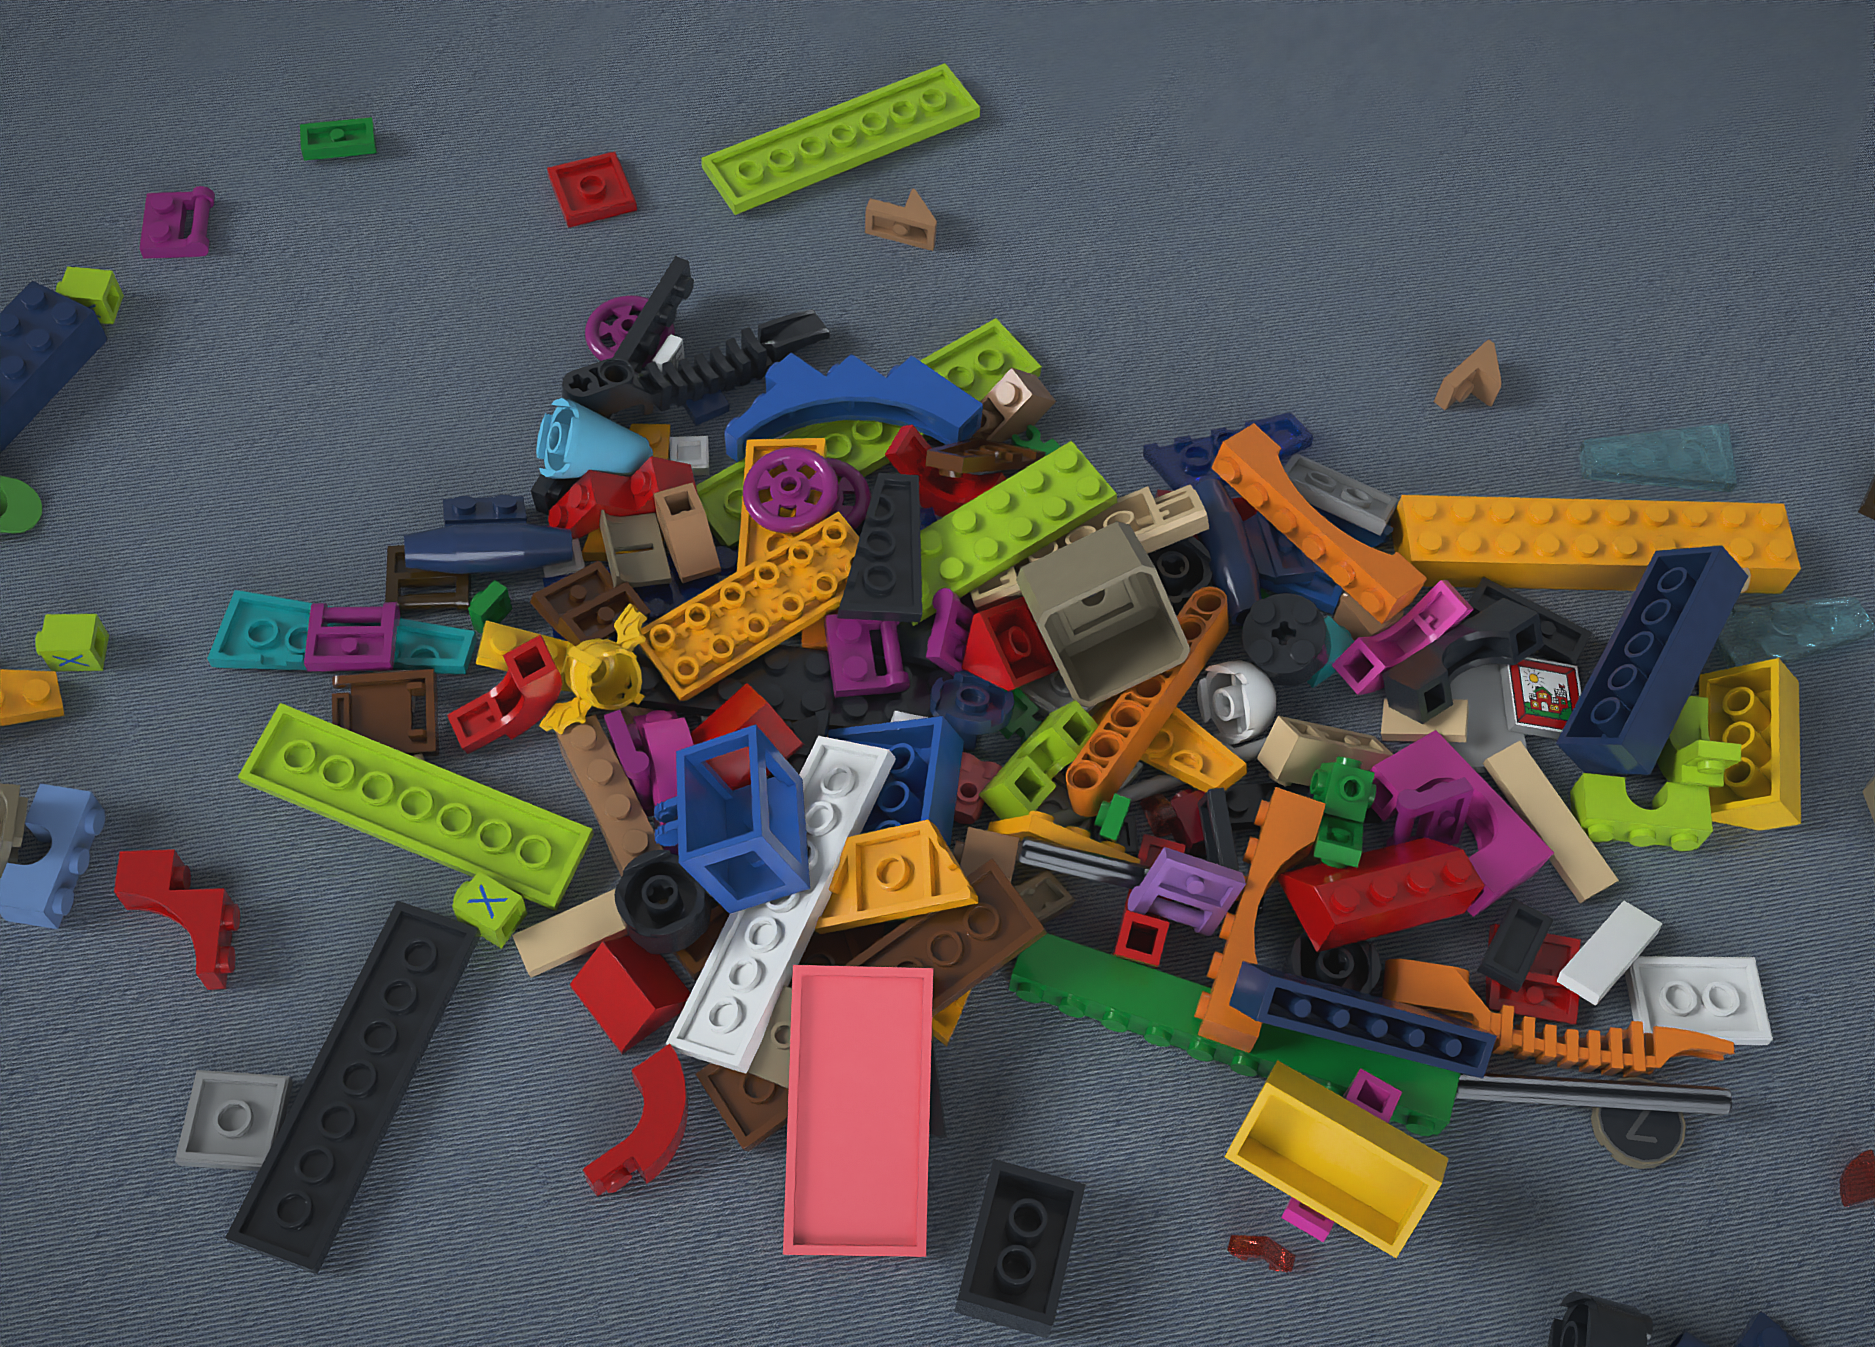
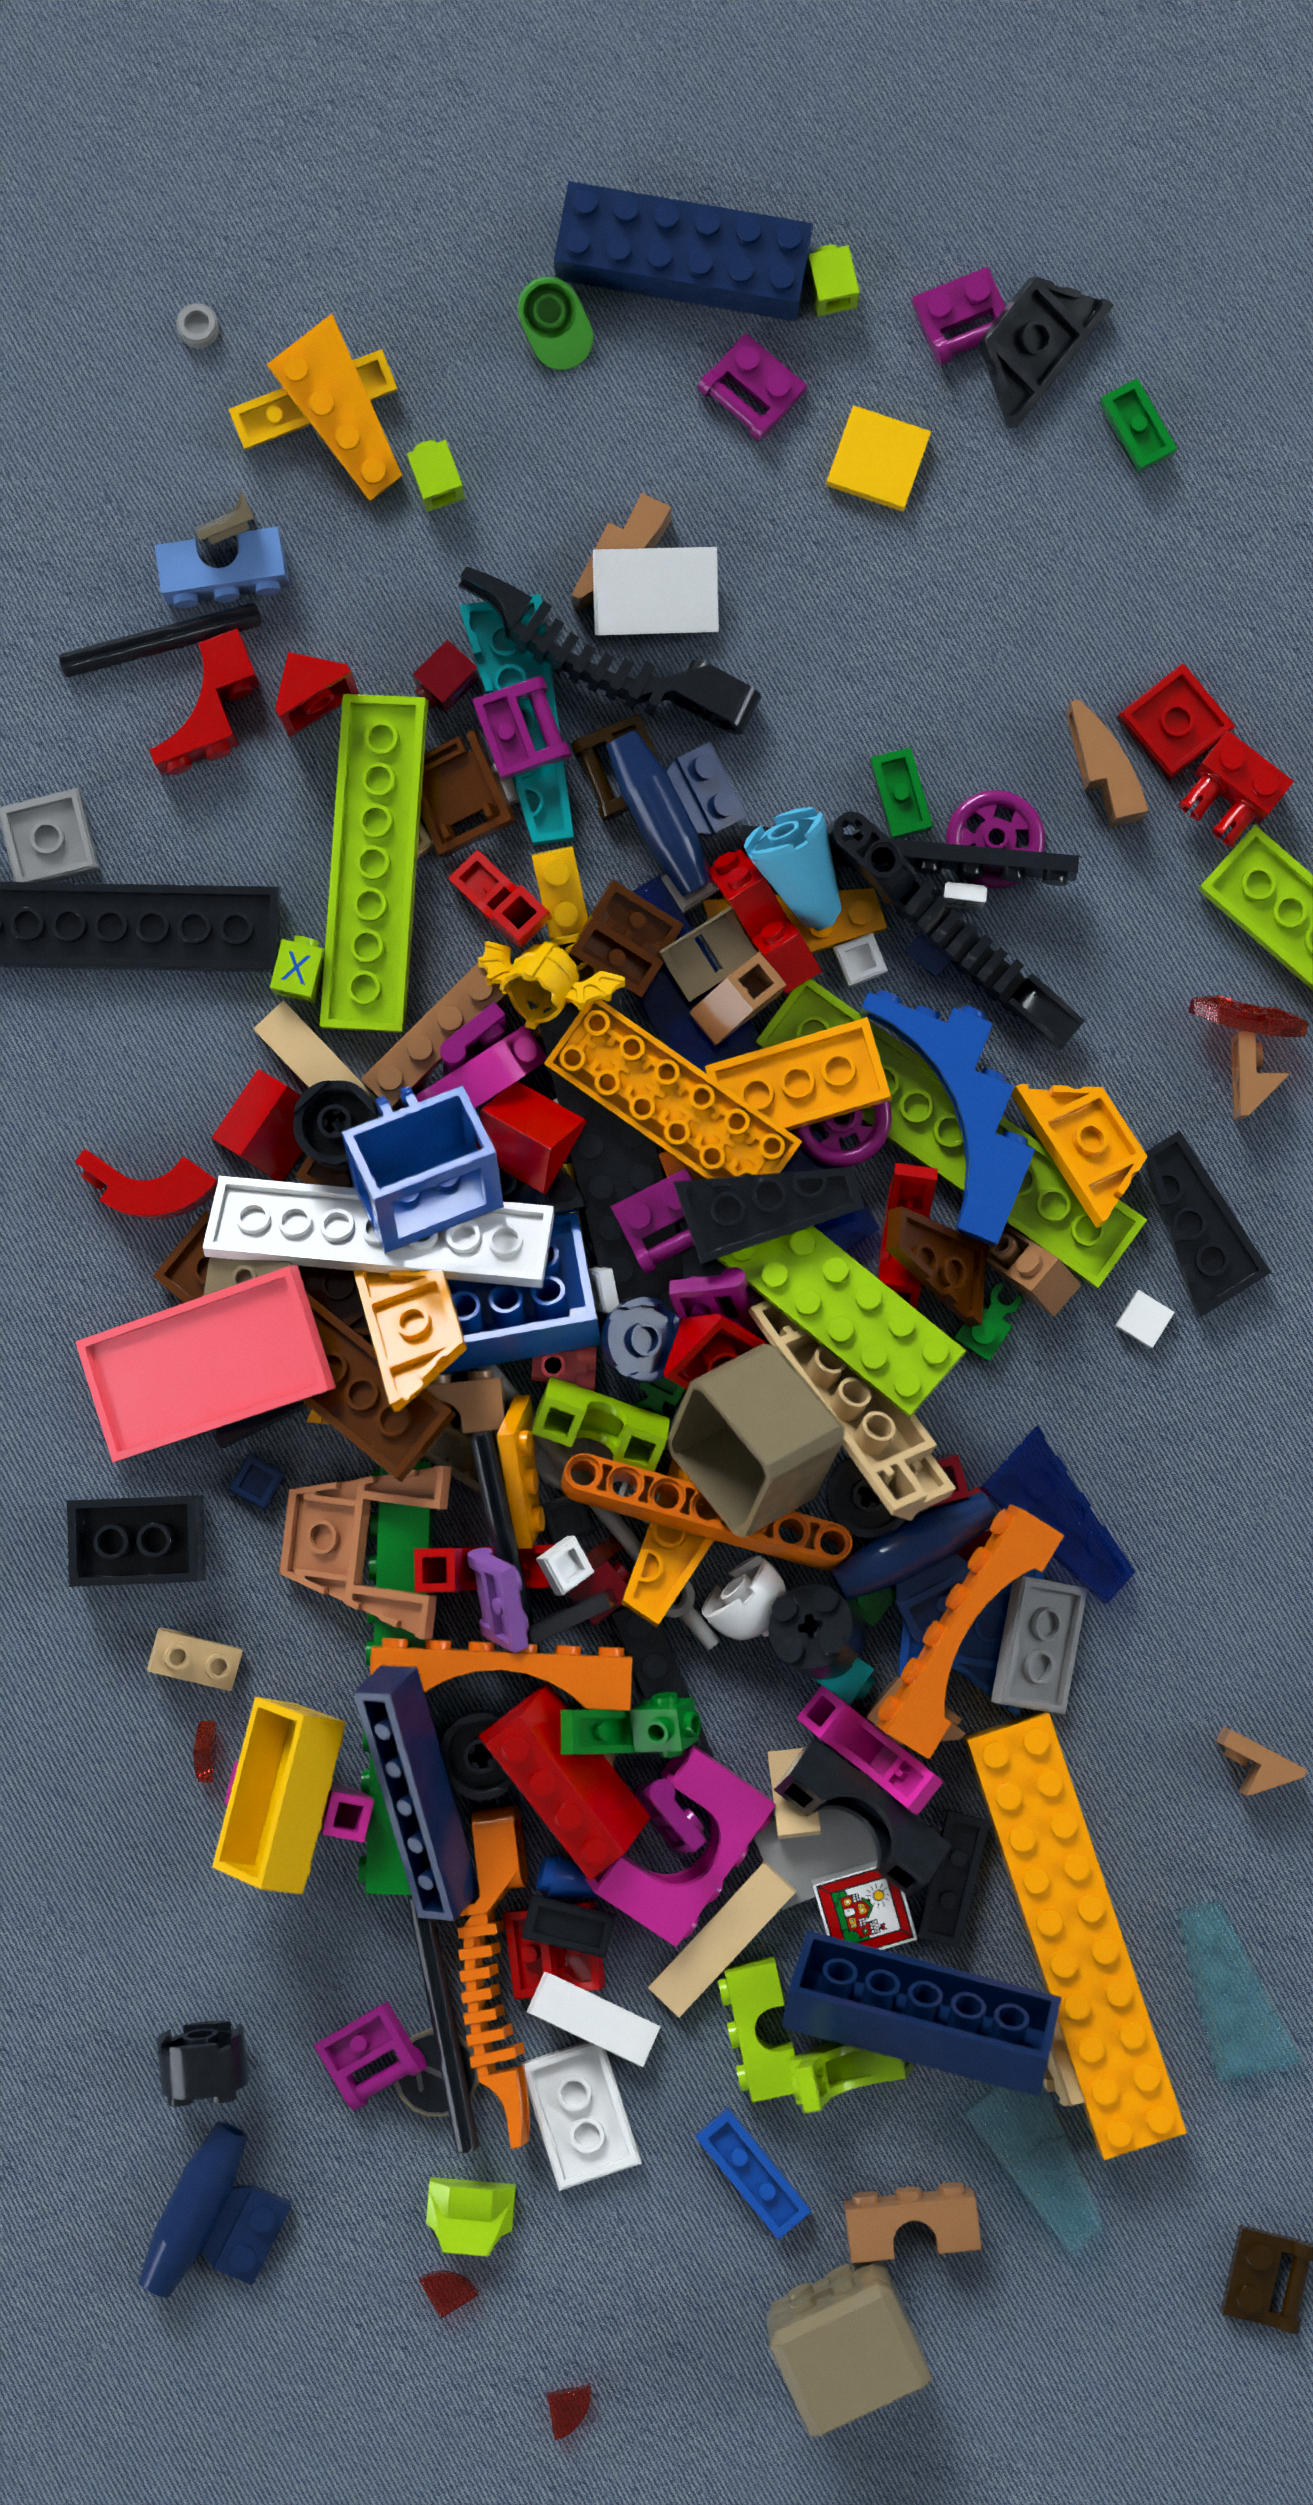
camera: 80 degrees right, 25 degrees up
(86, 948) = (159, 640): none -> black axle
(144, 381) = (759, 377): none -> magenta plate
(216, 800) = (311, 690): none -> red slope
(230, 177) = (1036, 341): none -> black wing
(230, 515) = (642, 530): none -> medium nougat slope
(261, 314) = (878, 458): none -> yellow tile
(266, 688) = (445, 677): none -> dark red brick
(283, 495) = (655, 590): none -> white tile
(391, 495) = (699, 689): none -> black piece
(489, 605) = (606, 838): green plate -> none
(544, 378) = (901, 793): none -> green plate
(603, 237) = (1105, 766): none -> medium nougat slope
(661, 155) = (1240, 778): none -> red brick
(807, 514) = (834, 1113): magenta plate -> none
(854, 204) = (1248, 1017): none -> clear red tile
(920, 332) = (1085, 1142): none -> light orange wing
(991, 1115) = (257, 1481): none -> dark blue tile
(1014, 288) = (1204, 1232): none -> black wing
(1072, 1051) = (329, 1538): none -> nougat wing
(1077, 350) = (1144, 1319): none -> white tile
(1112, 817) = (557, 1510): green plate -> none
(1160, 1233) = (194, 1659): none -> tan plate
(1166, 831) = (565, 1565): none -> white tile
(1299, 748) = (705, 1672): tan slope -> none
(1466, 941) = (563, 1879): none -> blue cone
(1601, 1181) = (363, 2043): none -> magenta plate
(1761, 712) = (882, 2135): yellow slope -> none
(1774, 861) = (753, 2173): none -> blue plate
(1787, 1133) = (469, 2214): none -> lime slope
(1831, 771) = (875, 2219): none -> medium nougat arch

